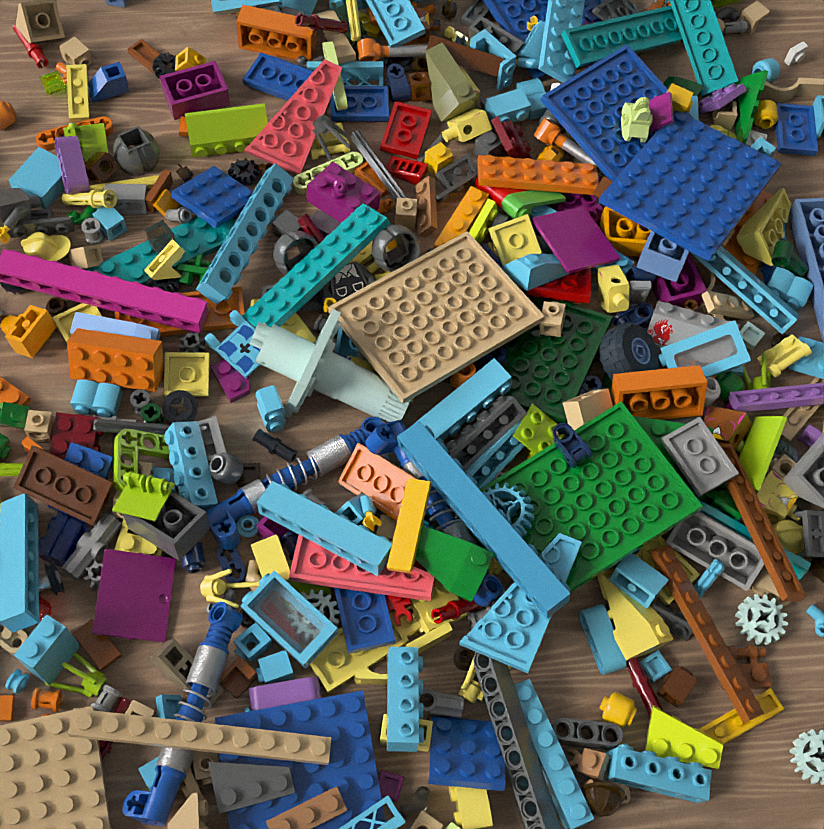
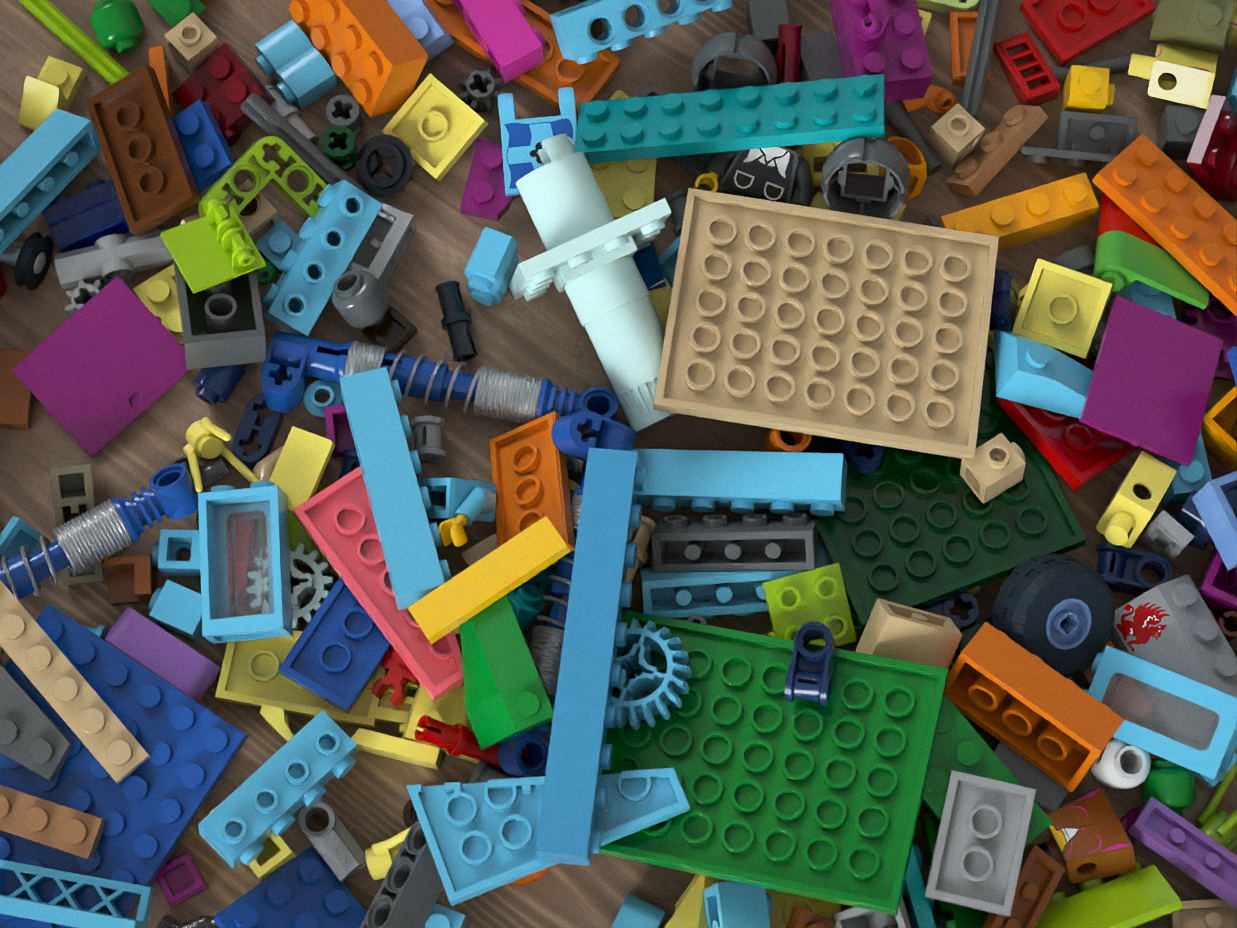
camera: 50 degrees right, 10 degrees up
(484, 221) = (1044, 243): neon yellow wing -> none

